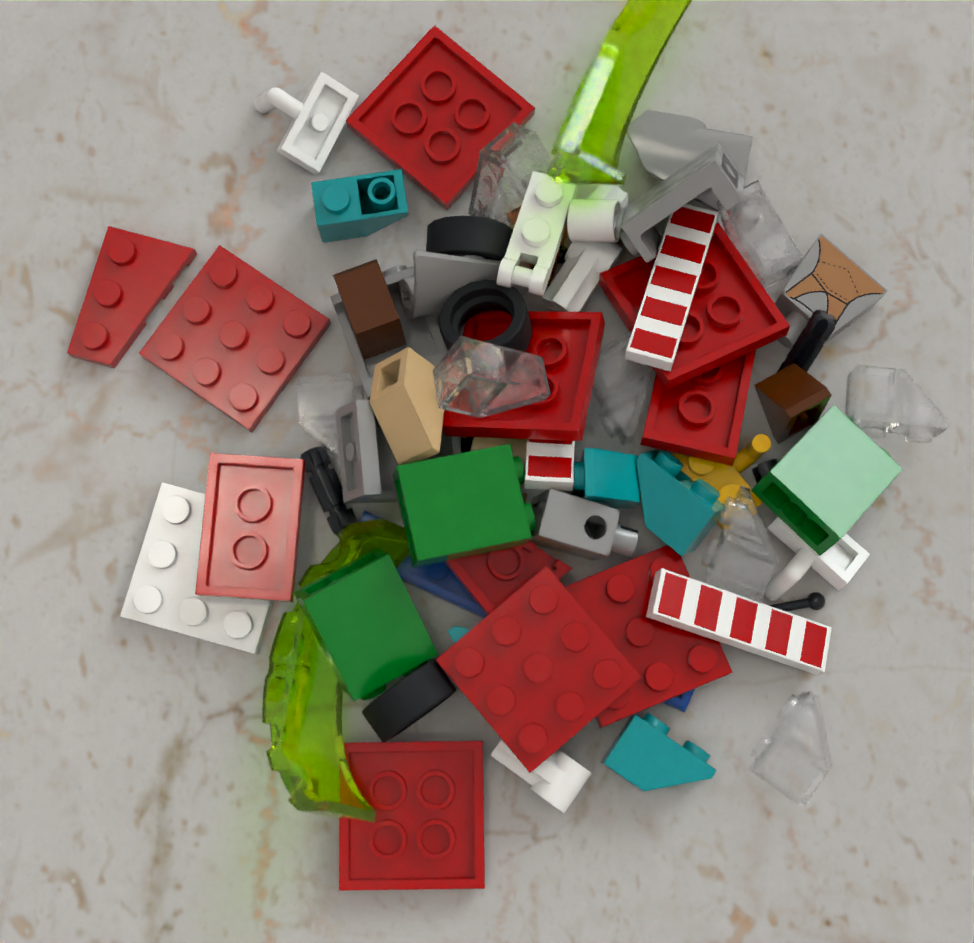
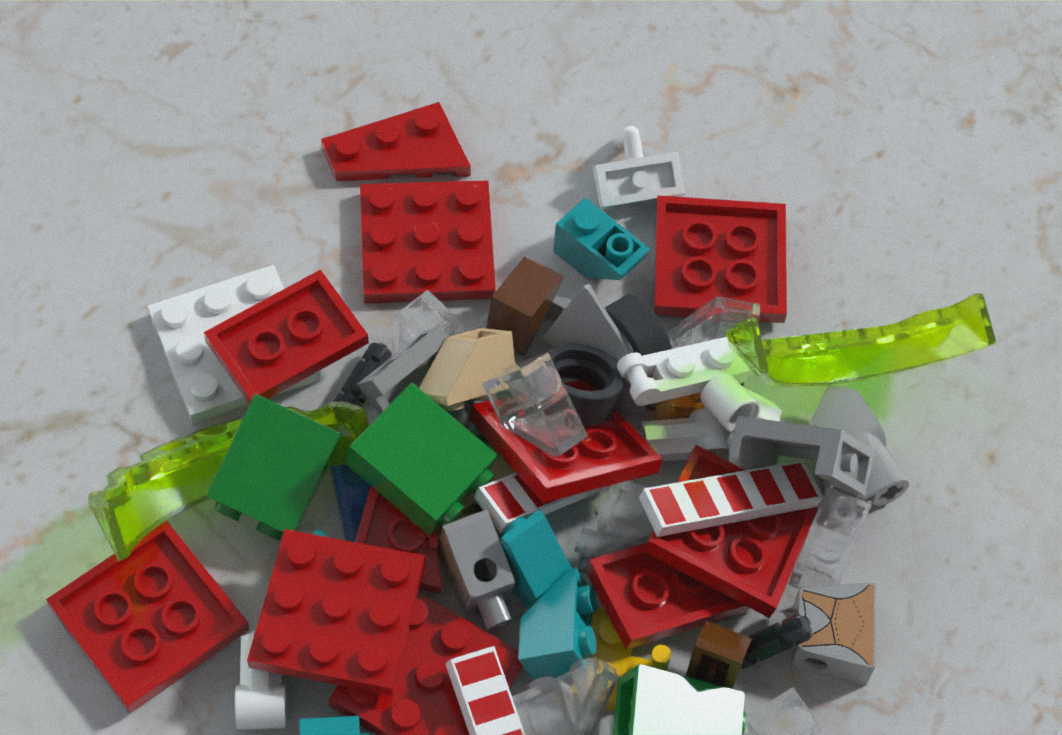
camera: 45 degrees right, 20 degrees down
(408, 700) = (236, 540): black tyre -> none

